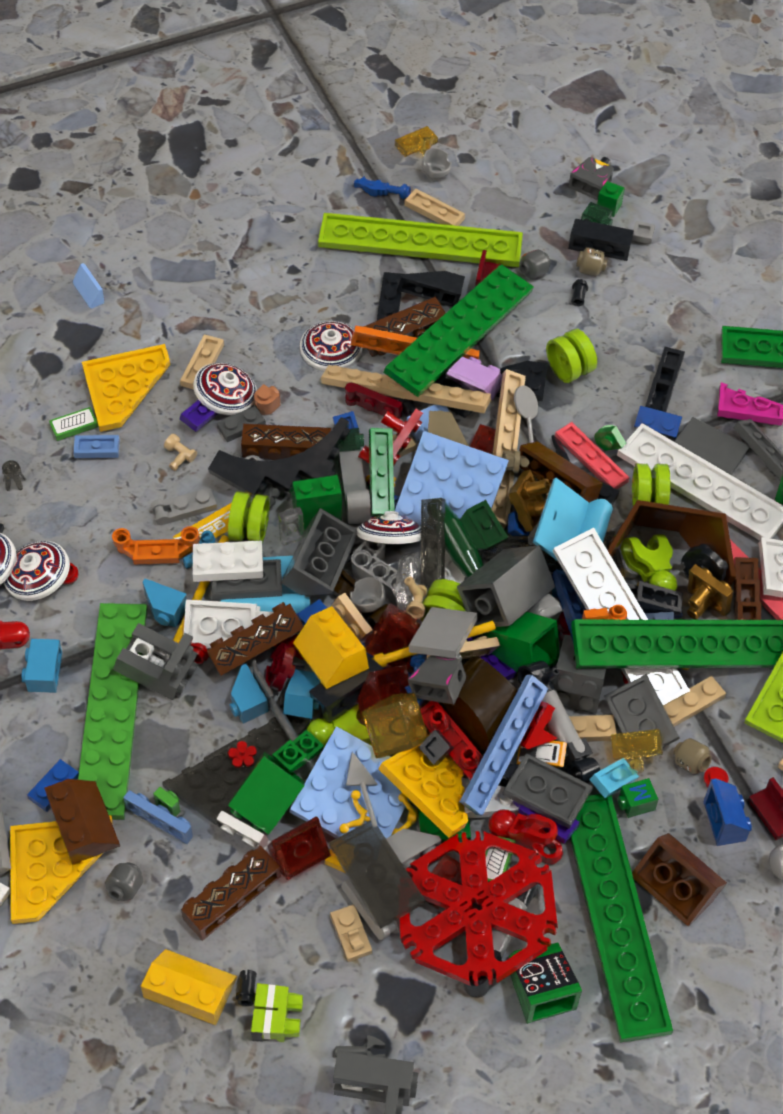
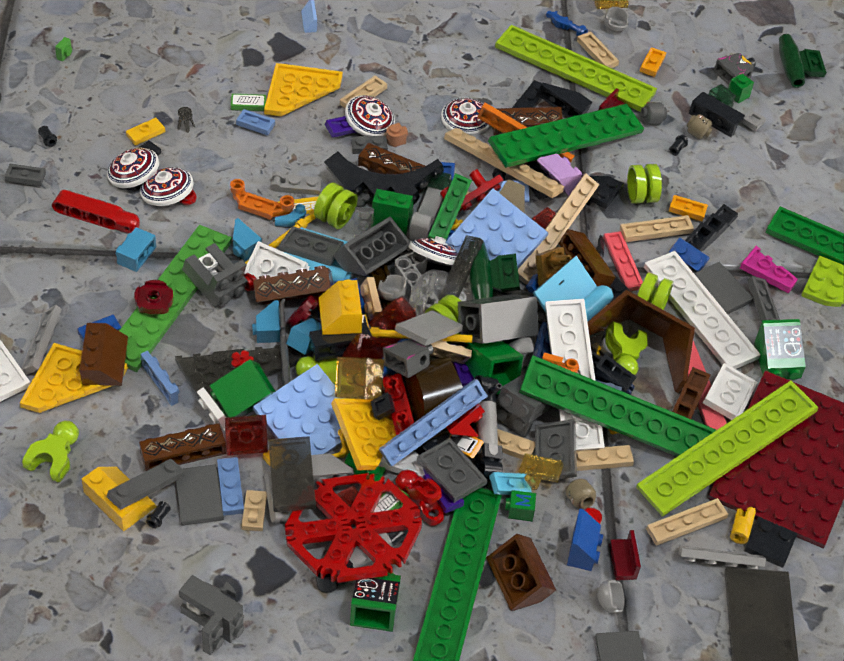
camera: 20 degrees right, 5 degrees down
(84, 961) = (54, 450): none -> lime piece
(100, 732) = (154, 306): none -> dark red plate
(124, 881) = (111, 410): dark grey head -> none
(168, 800) = (172, 369): bright green plate -> none
(173, 443) = (311, 139): tan piece -> none
(218, 960) = (145, 484): none -> dark grey plate
(227, 561) = (303, 228): white plate -> none
(271, 1012) = (166, 537): lime hips -> none
(278, 941) = (199, 495): none -> dark grey tile
(298, 752) = (280, 372): green slope -> none
(308, 915) = (230, 486): none -> medium blue plate
(344, 828) = (303, 433): yellow piece -> none
(361, 777) = (316, 404): light grey piece -> none
(371, 400) = (474, 161): dark red plate -> none
(416, 608) = (430, 299): tan piece -> none
(501, 201) = (653, 62): none -> light orange plate
(515, 460) = (555, 236): dark tan piece -> none
(527, 406) = (589, 205): light grey piece -> none
(608, 403) = (656, 228): none -> tan plate
(609, 438) = (642, 251): green plate -> none
(628, 365) = (685, 207): none -> light orange plate
(655, 143) = (798, 62): none -> dark green plate
(707, 593) = (656, 384): pearl gold plate -> none
(709, 559) = (665, 357): black plate -> none

